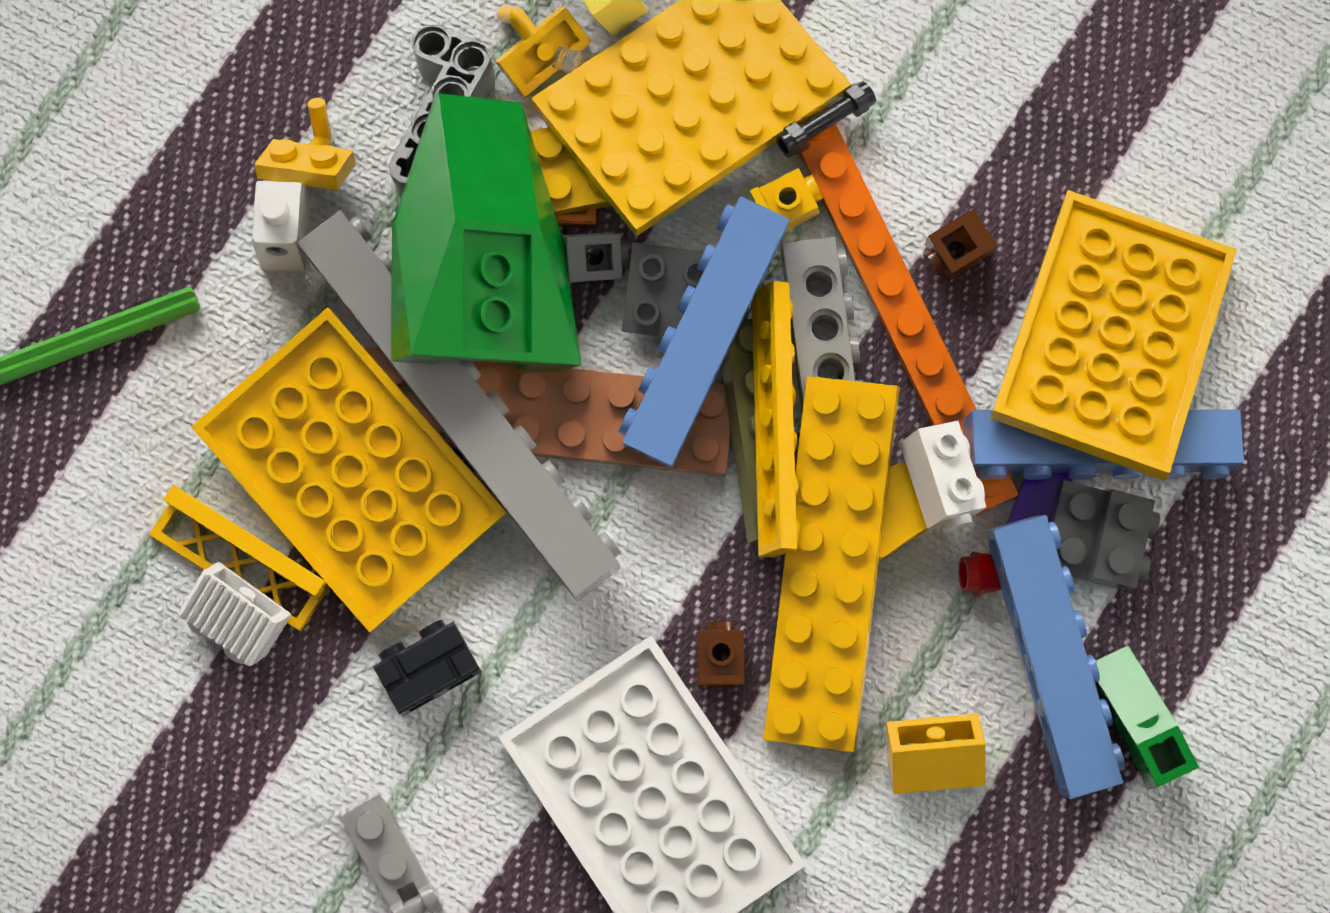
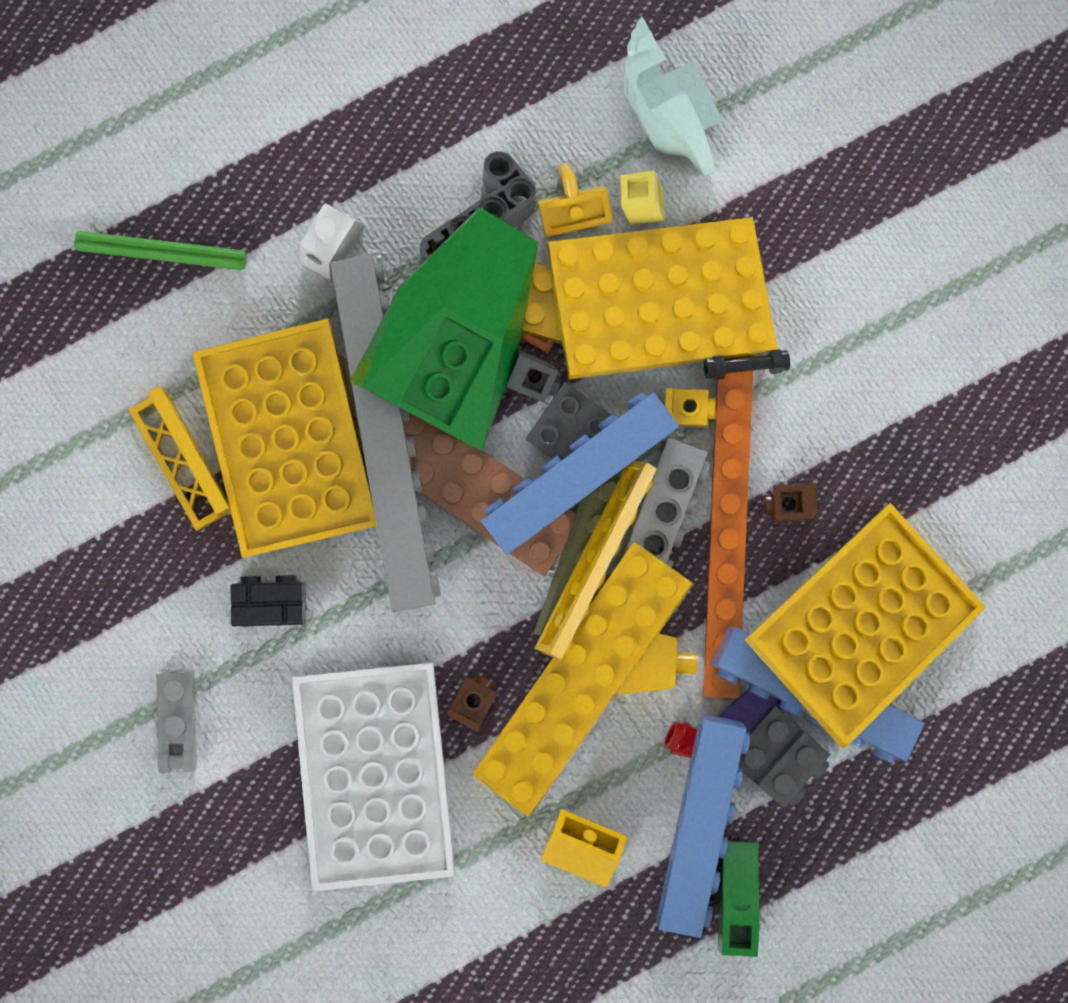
camera: 25 degrees right, 5 degrees up
(233, 615) = (156, 497): white brick -> none
(311, 163) = (372, 207): yellow plate -> none
(570, 59) = (590, 227): clear hand -> none
(943, 476) = (690, 662): white brick -> none

